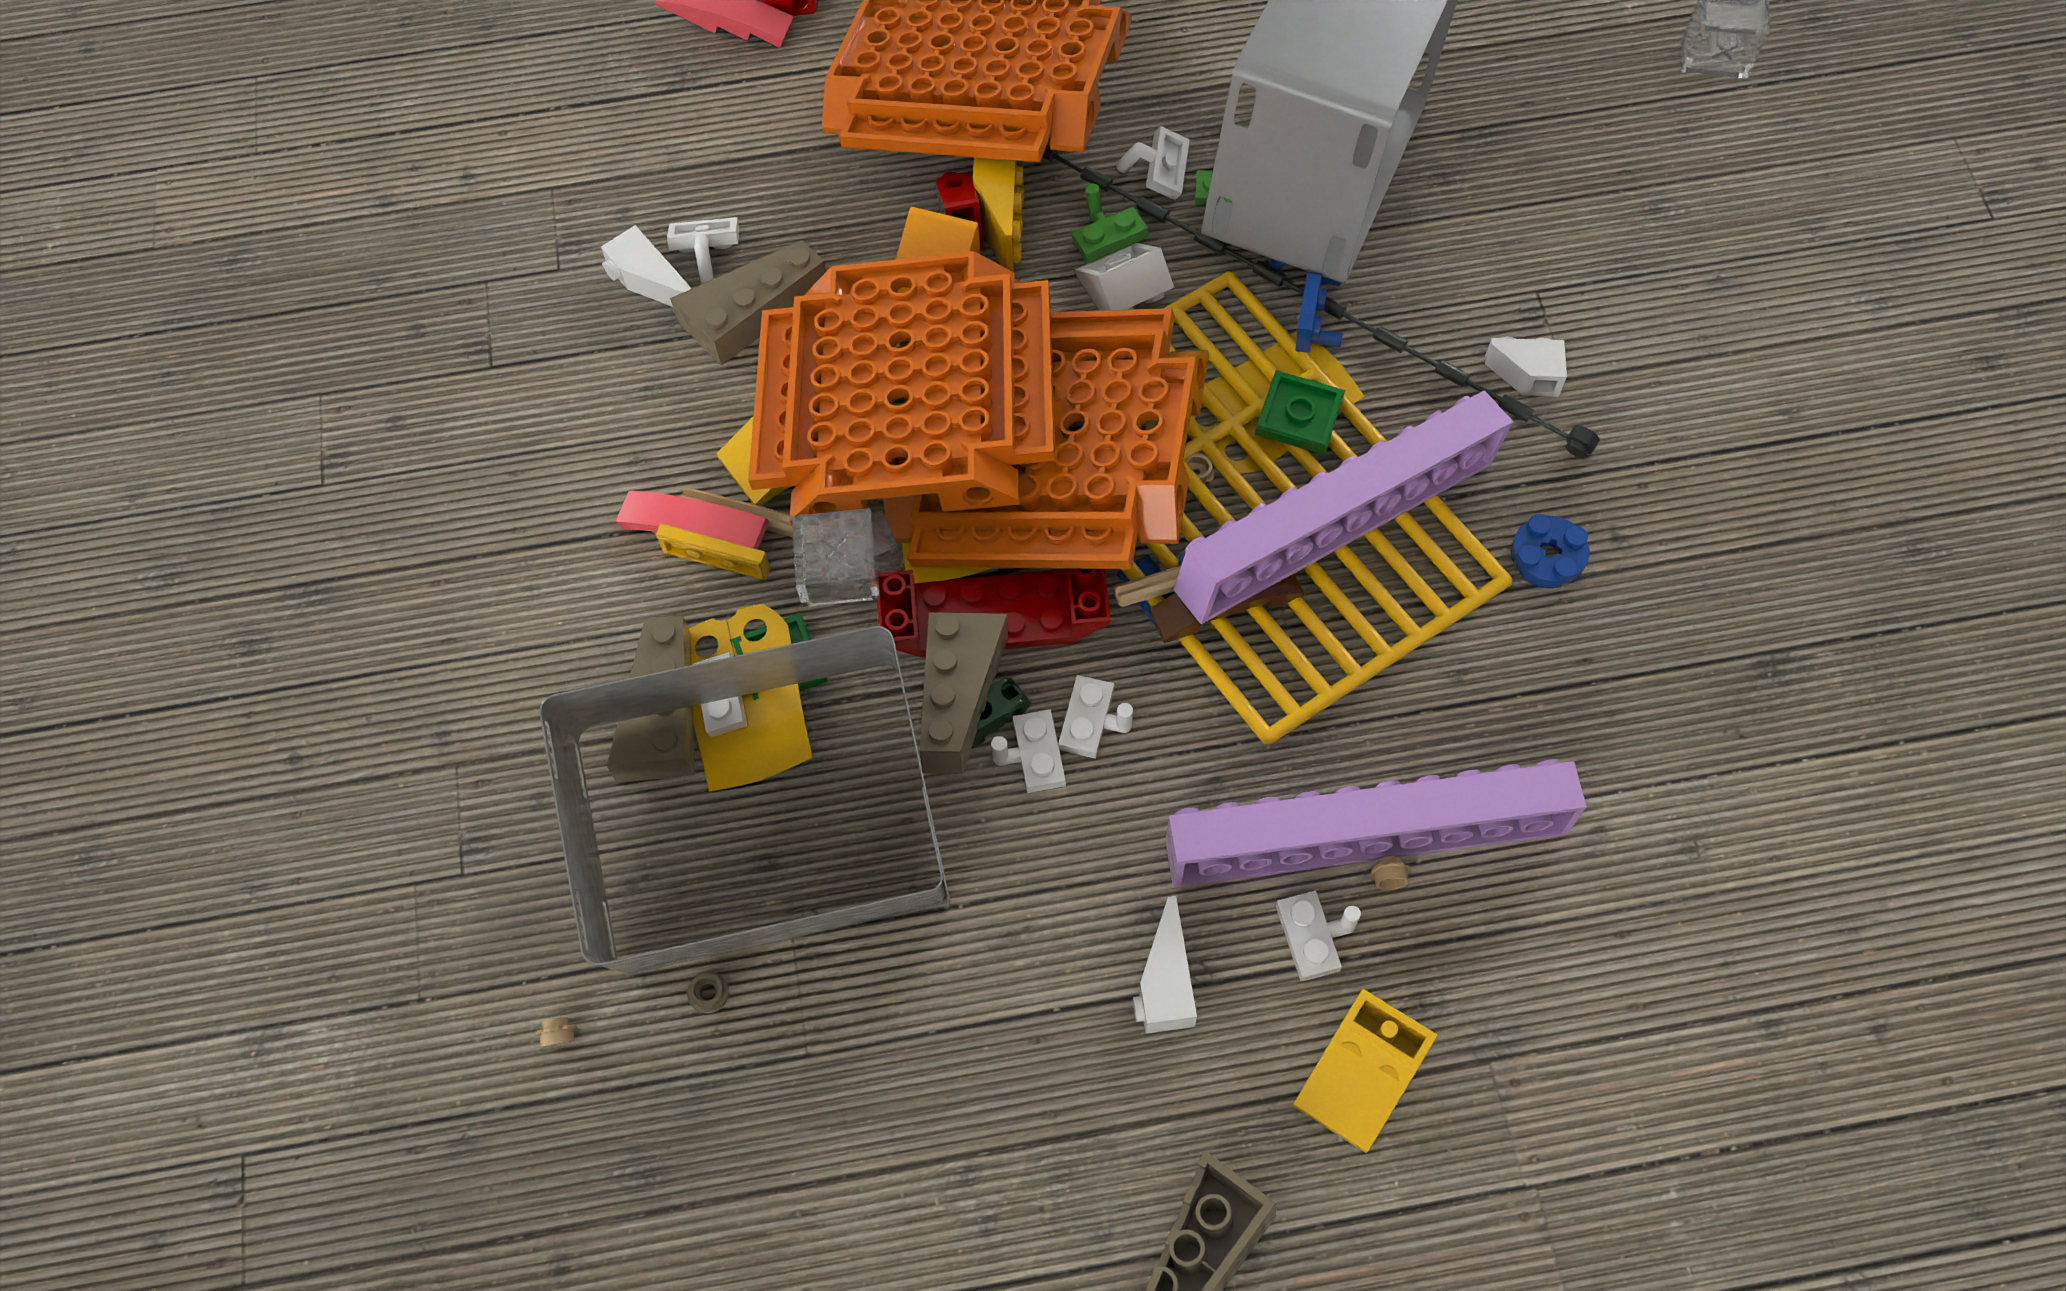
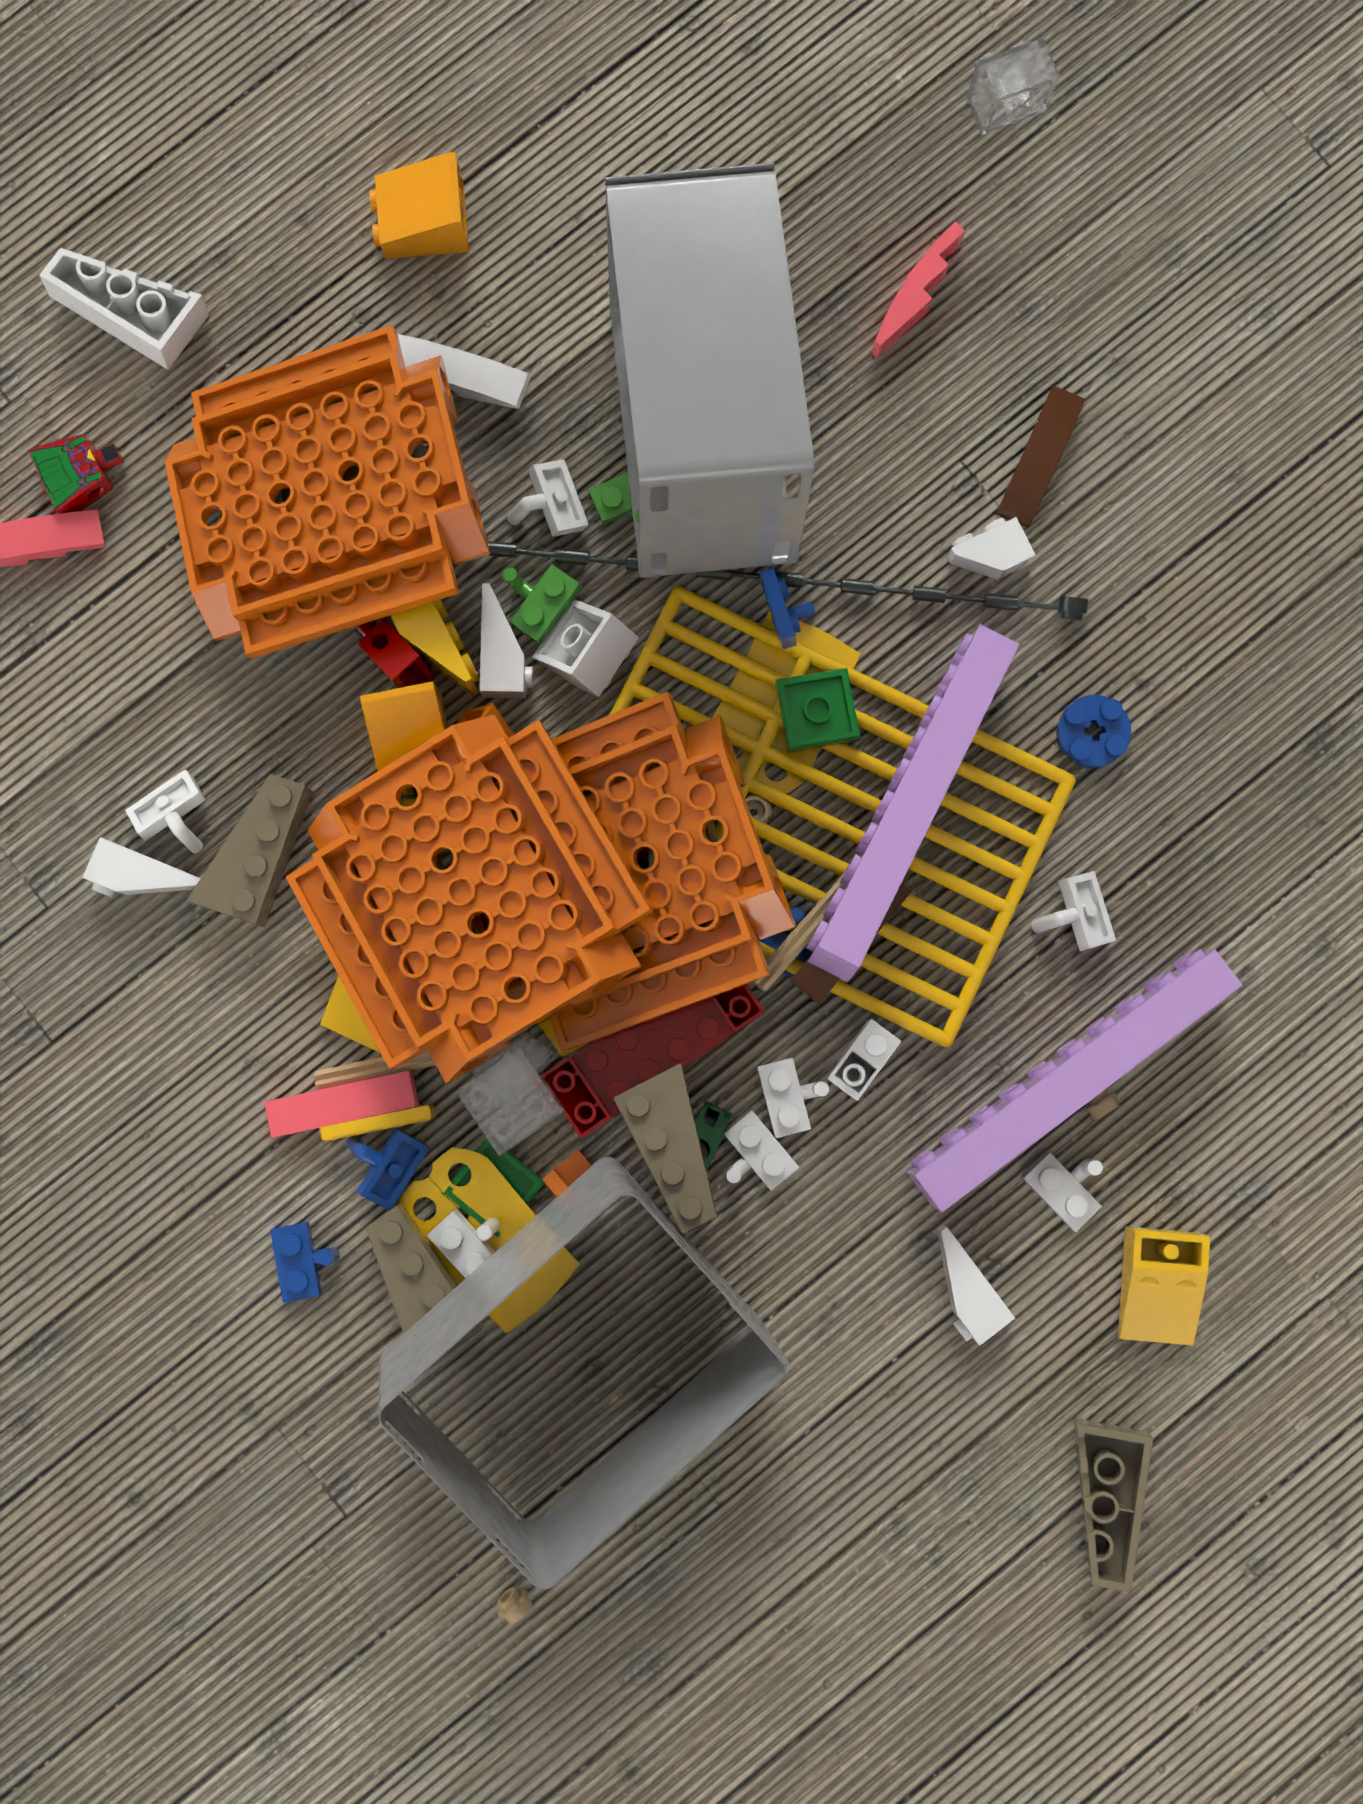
camera: 30 degrees left, 20 degrees up
(568, 632) = (298, 1261): none -> blue plate
(700, 592) = (390, 1168): none -> blue plate
(853, 689) = (567, 1172): none -> orange panel
(1048, 248) = (502, 662): none -> white slope
(1154, 53) = (470, 374): none -> white slope
(1182, 710) = (863, 1059): none -> white slope
(1463, 692) = (1084, 911): none -> white plate
(1554, 152) = (913, 298): none -> coral slope
(1611, 313) = (1041, 456): none -> reddish brown slope

